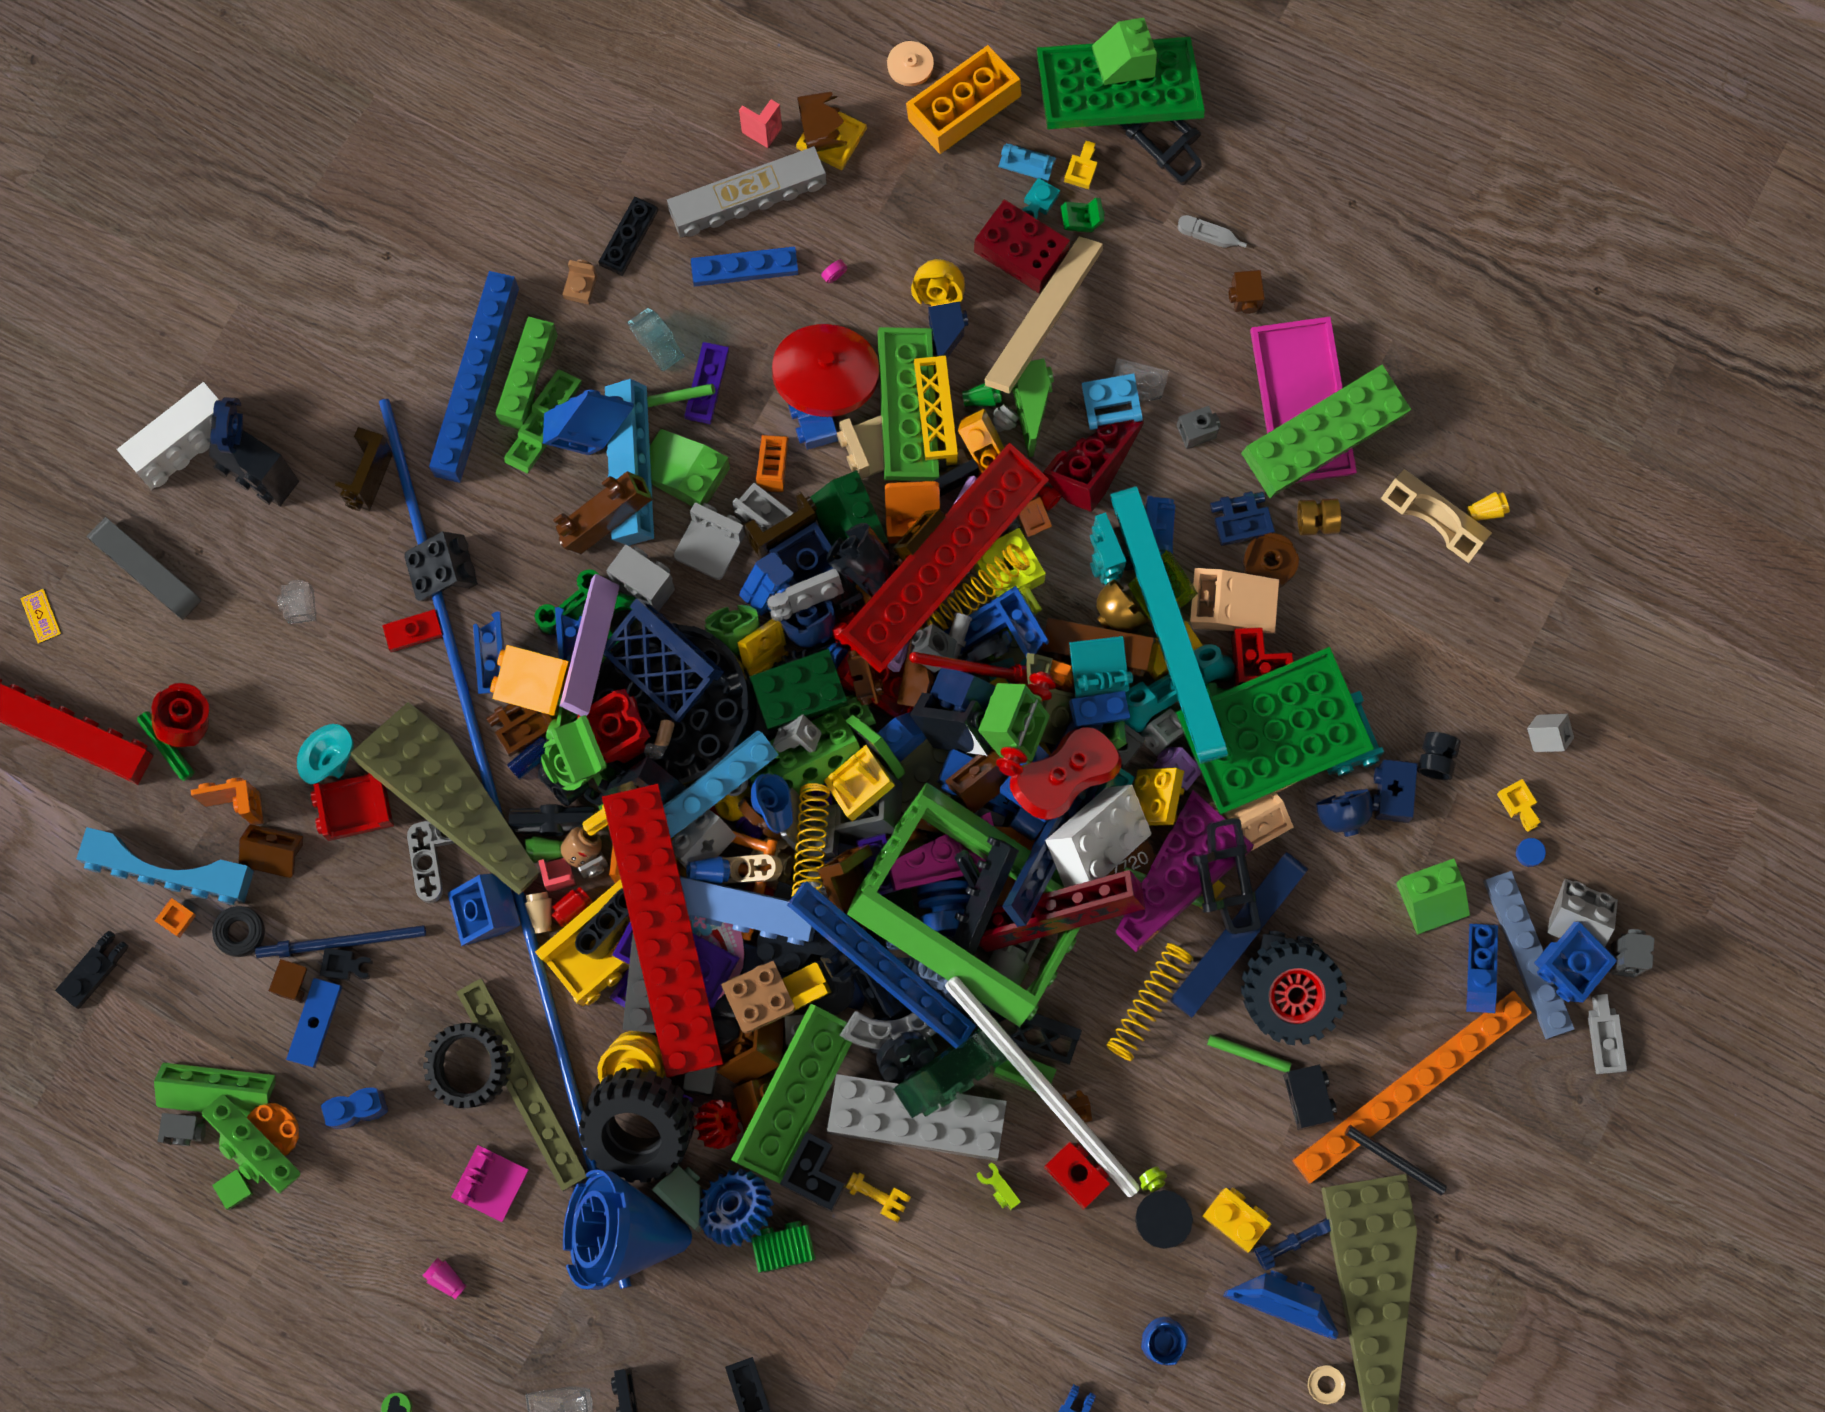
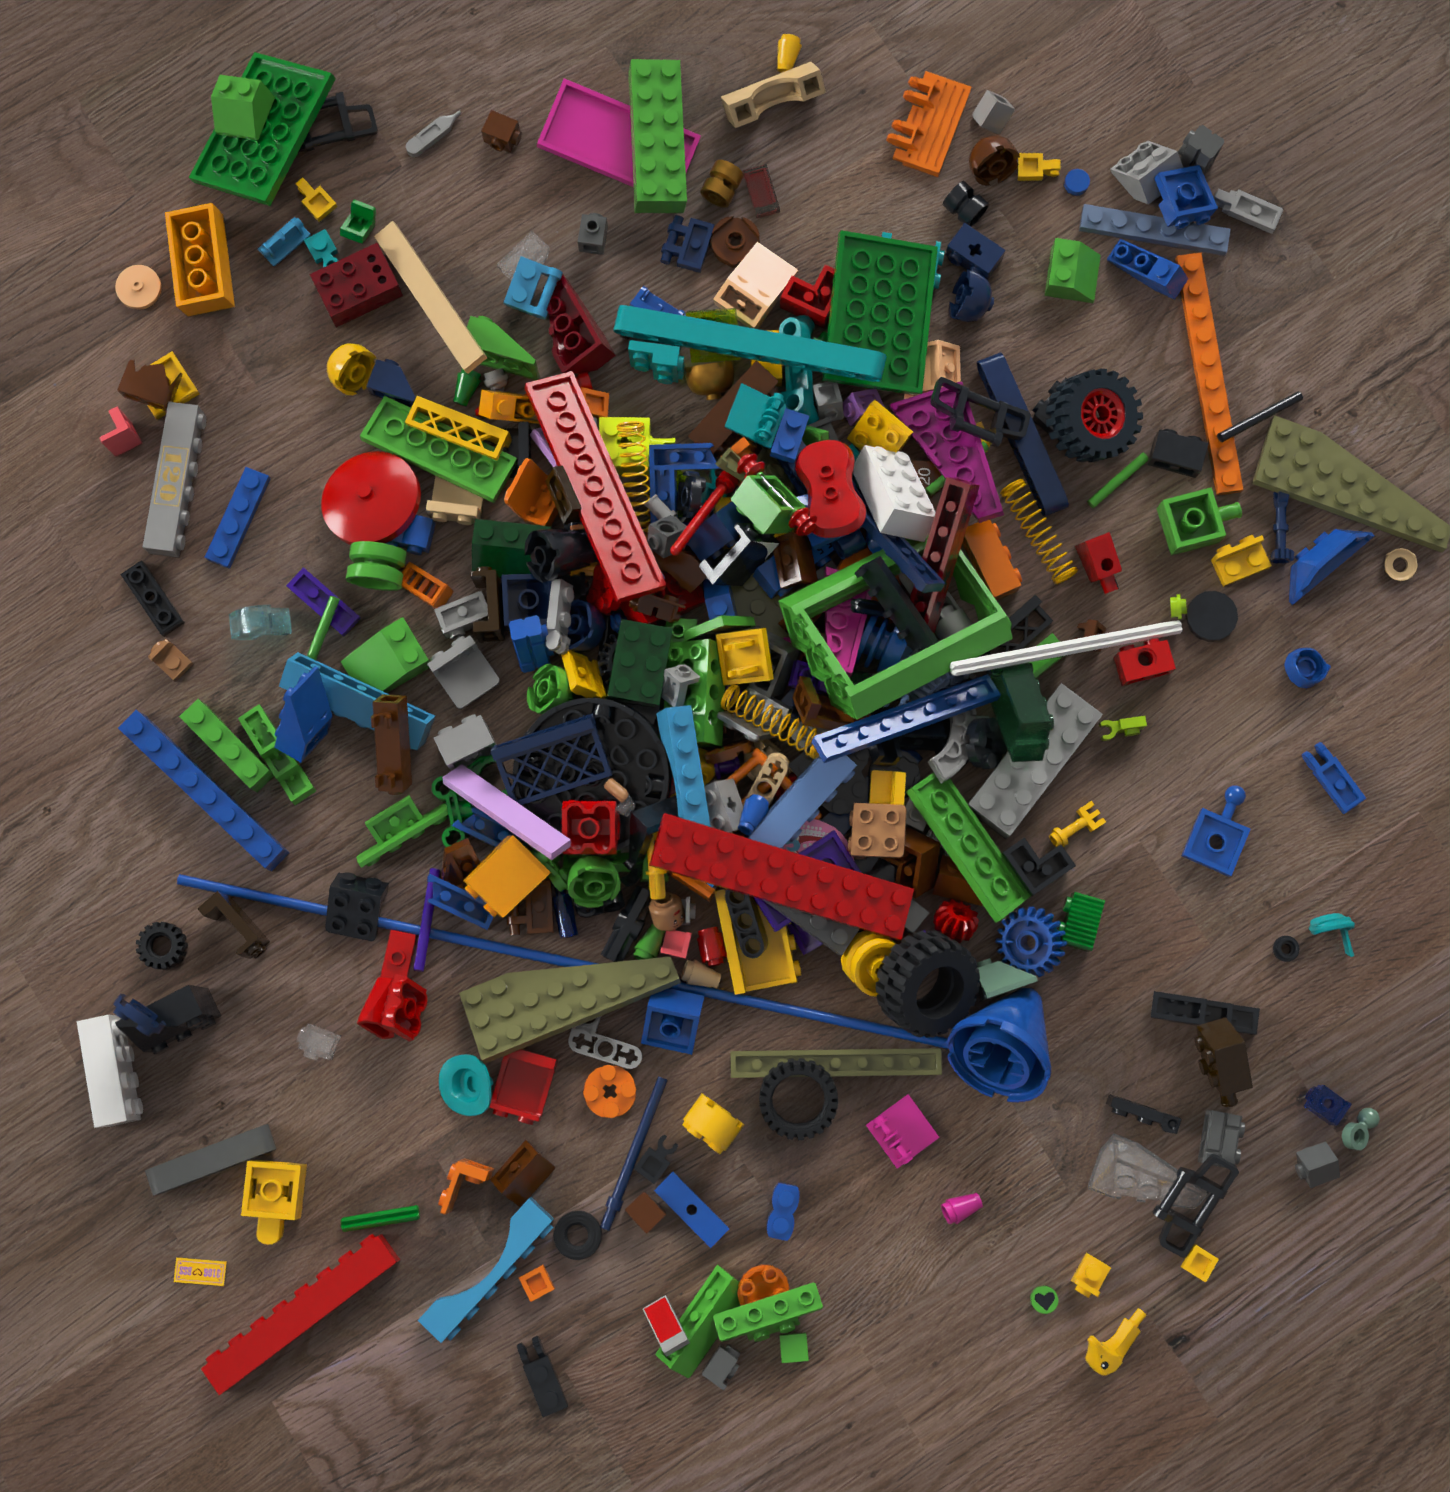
camera: 60 degrees left, 5 degrees up
(137, 639) = (276, 1196): none -> yellow brick
(176, 729) = (365, 1176): red brick -> none
(192, 1056) = (666, 1325): none -> red tile
(308, 406) = (146, 945): none -> black tyre
(361, 650) = (394, 1008): none -> red piece
(396, 901) = (595, 1093): none -> orange plate
(402, 996) = (713, 1123): none -> yellow brick
(451, 638) = (425, 927): none -> dark purple bar
(527, 633) = (459, 862): none -> reddish brown wing
(532, 560) = (397, 825): none -> bright green bracket
(579, 749) = (595, 864): bright green panel -> none
(766, 407) = (376, 565): none -> bright green wheel
(773, 801) = (723, 732): blue cap -> none
(834, 271) = (287, 446): dark pink tile -> none
(951, 1328) = (1231, 833): none -> blue plate
(1094, 971) = (991, 559): none -> orange brick
(1159, 1066) = (1099, 551): none -> red torso
(1248, 1149) = (1194, 520): none -> bright green brick
(1336, 558) = (761, 191): none -> clear smoke tile
(1499, 756) = (993, 159): none -> reddish brown cylinder
(1500, 683) = (930, 126): none -> orange hinge

